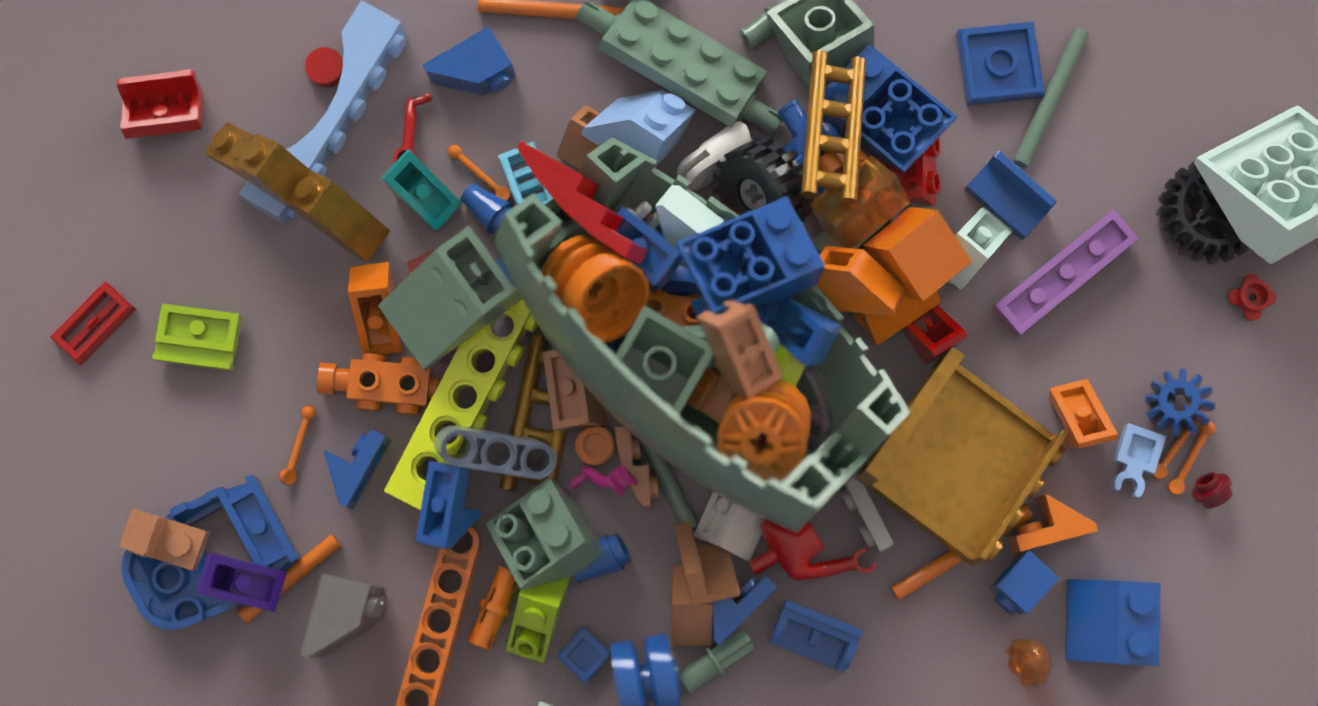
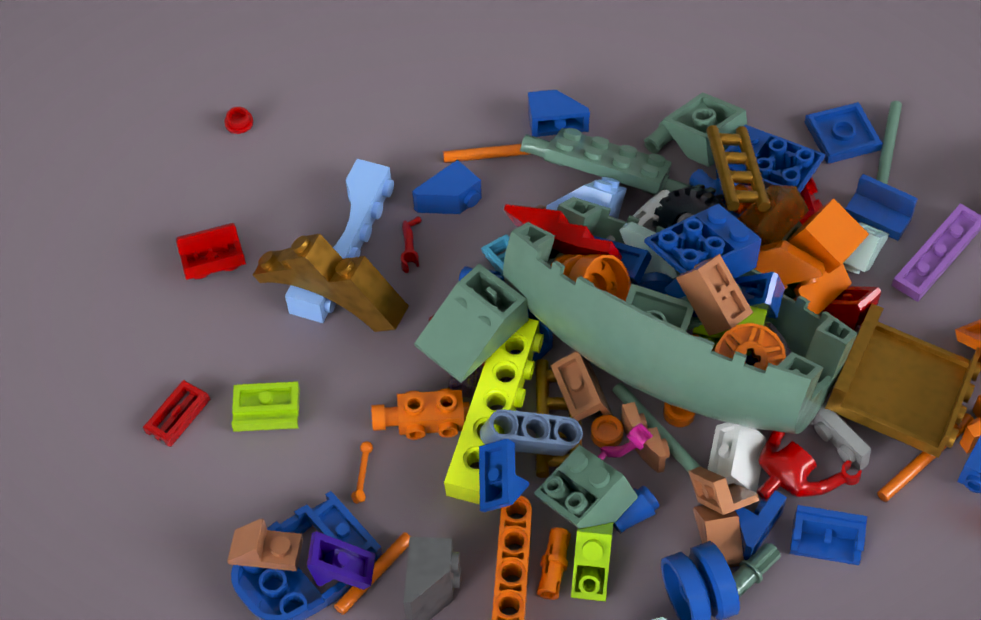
camera: 10 degrees left, 25 degrees down
(324, 67) = (334, 212): red tile -> none
(353, 478) = (414, 479): blue slope -> none
(366, 290) = (407, 361): orange slope -> none
(421, 190) = (423, 269): teal slope -> none
(455, 152) = (446, 251): orange hinge -> none
(584, 655) = (638, 588): blue tile -> none

